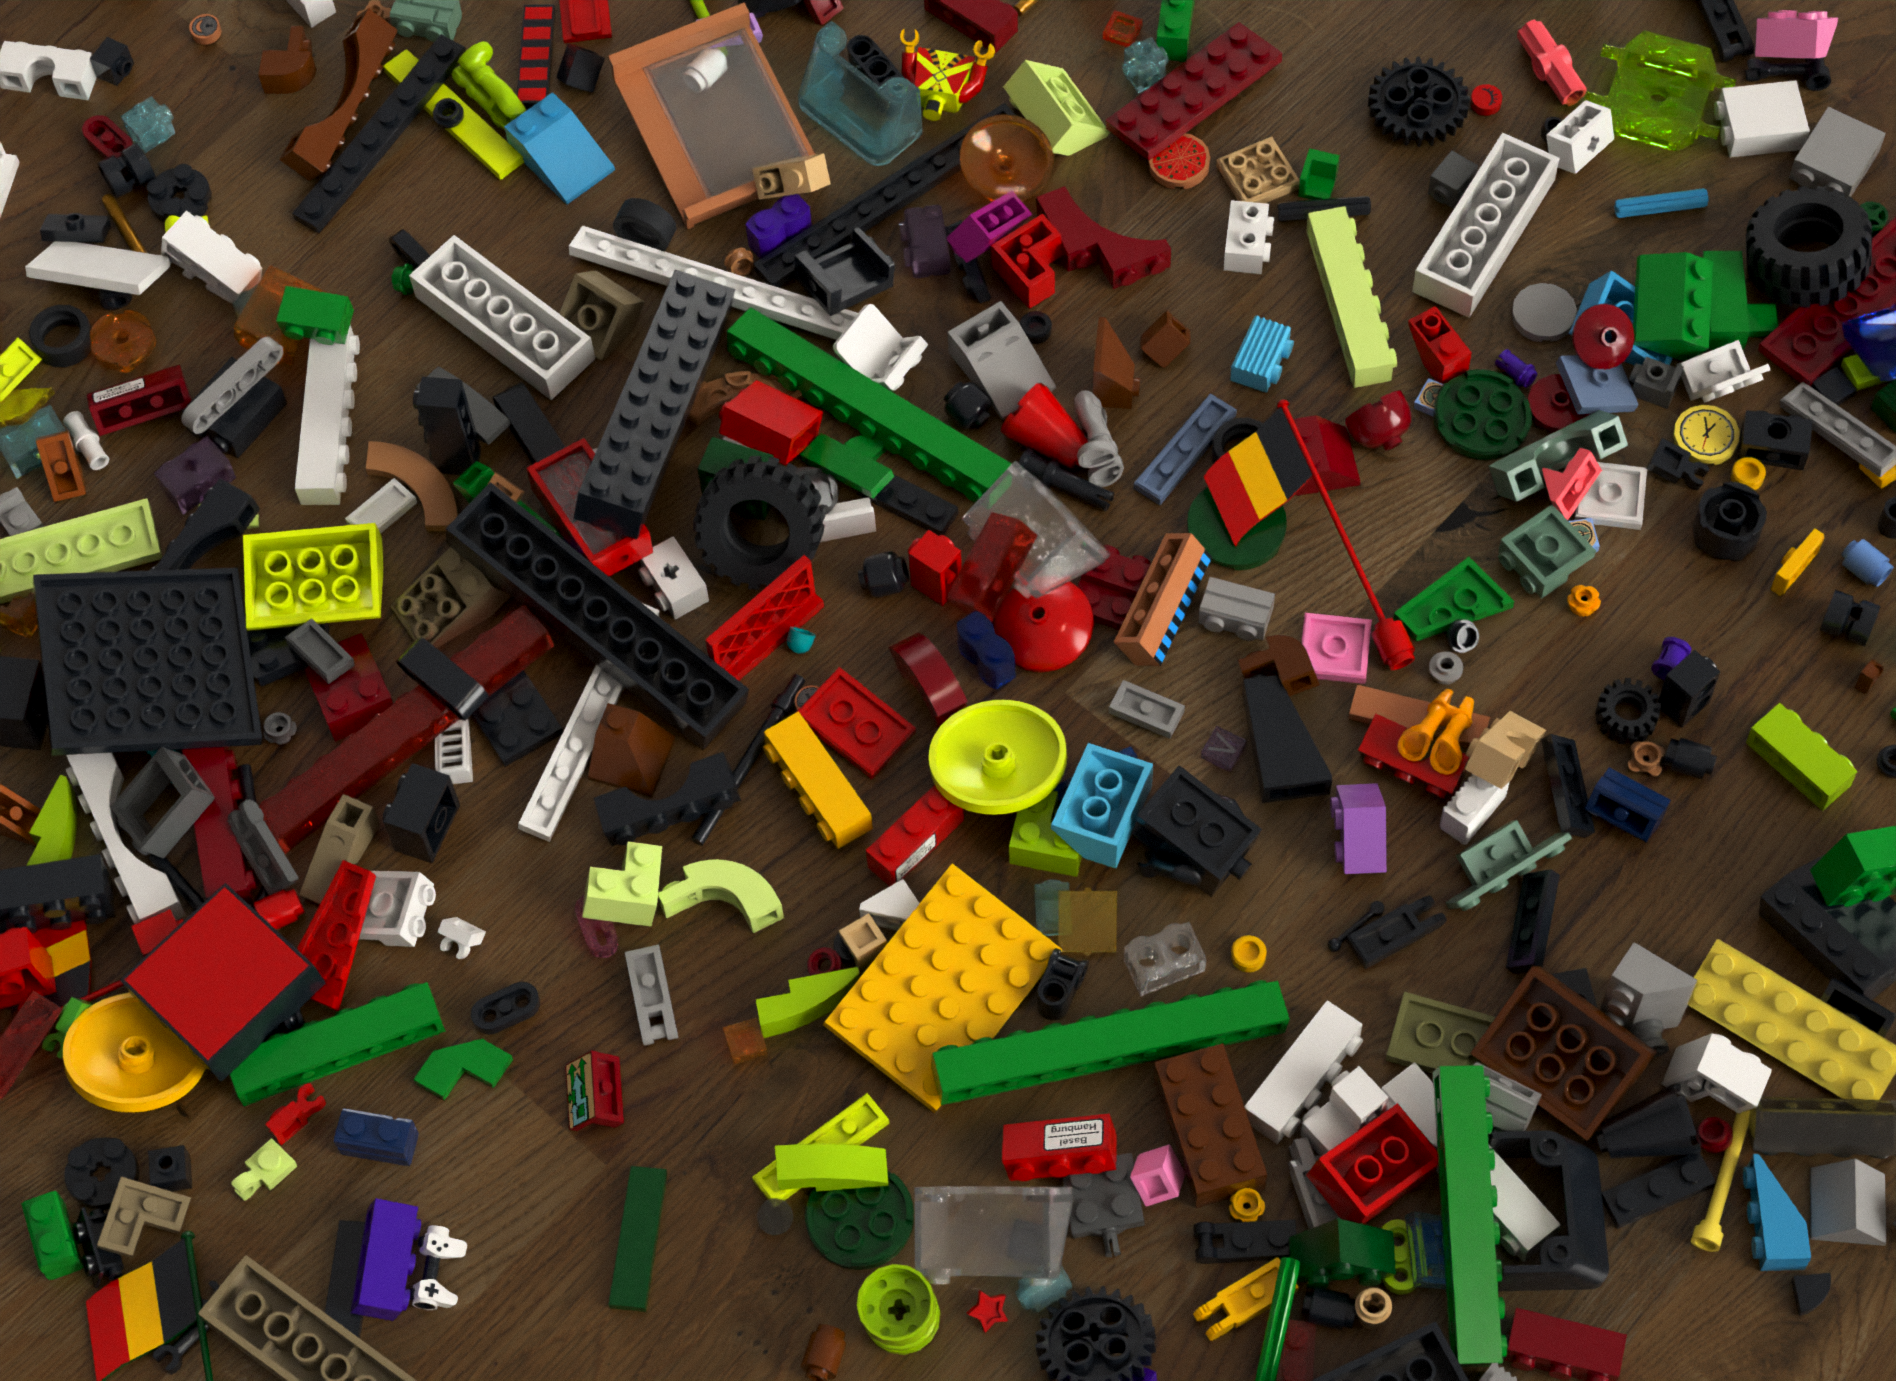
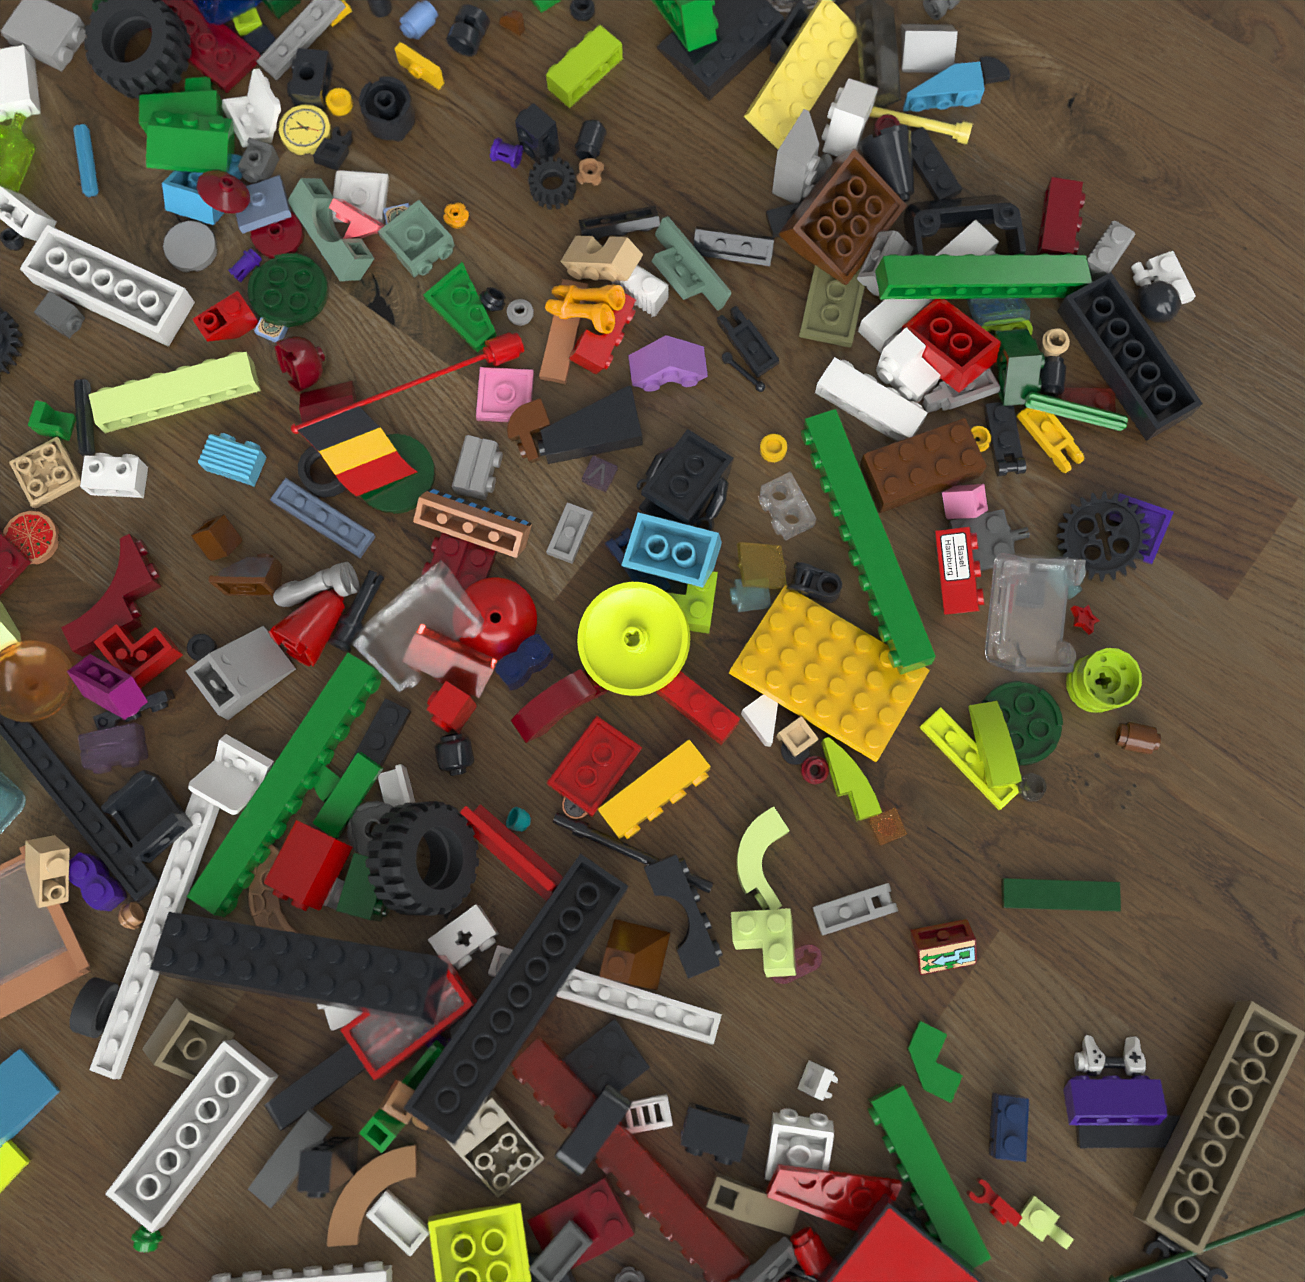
camera: 95 degrees left, 15 degrees up
(408, 249) = (115, 1237): black beam -> none
(504, 1006) = (879, 1031): black plate -> none
(967, 405) = (285, 697): black head -> none
(1627, 804) = (634, 179): dark blue brick -> none

